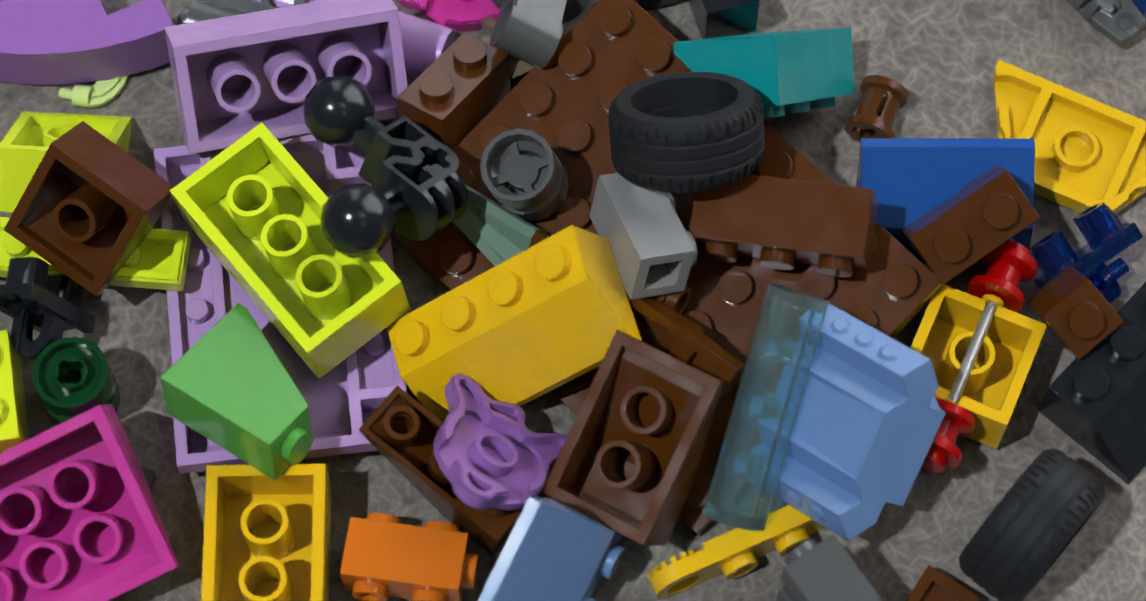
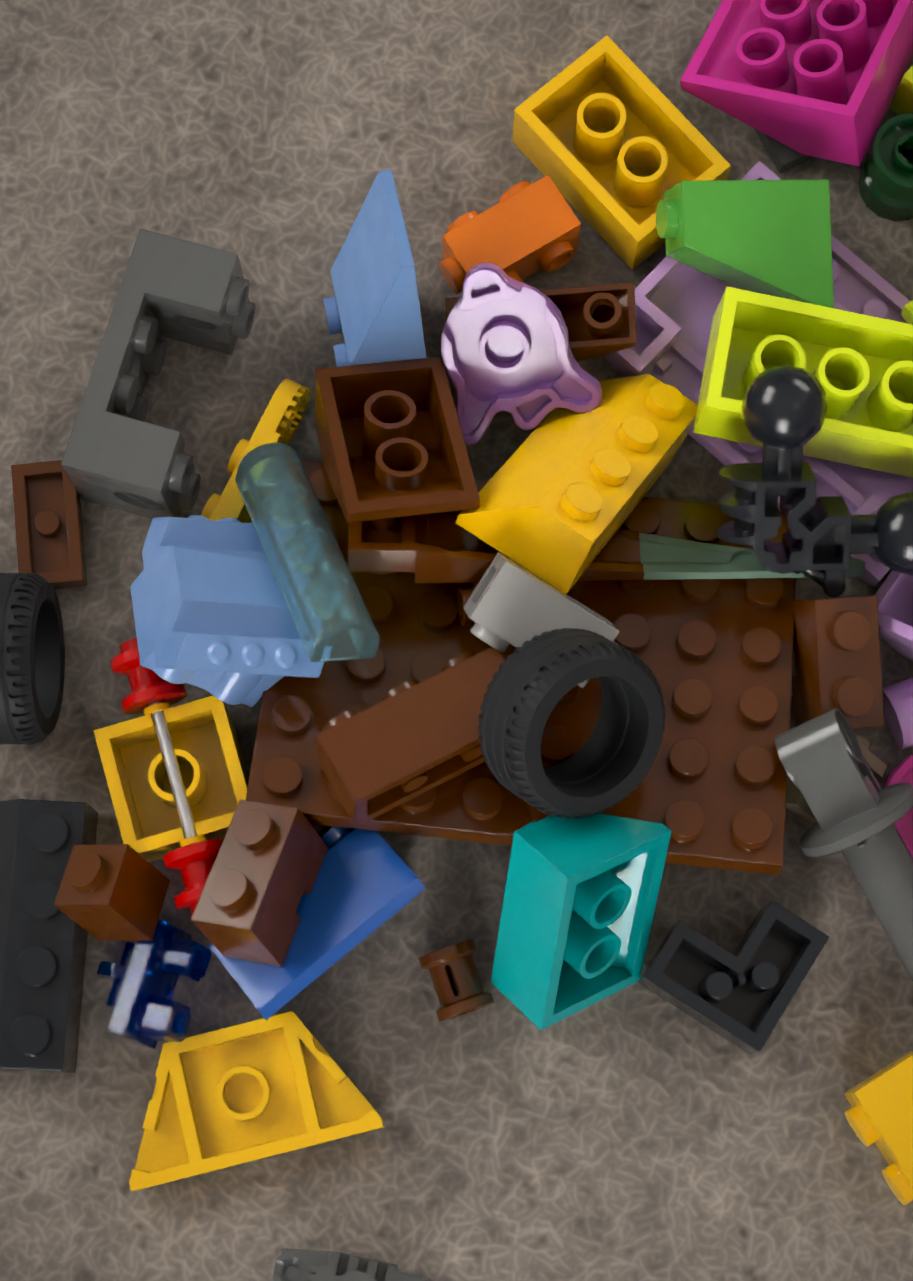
camera: 140 degrees right, 10 degrees up
(524, 174) = (696, 605): dark grey wheel -> none

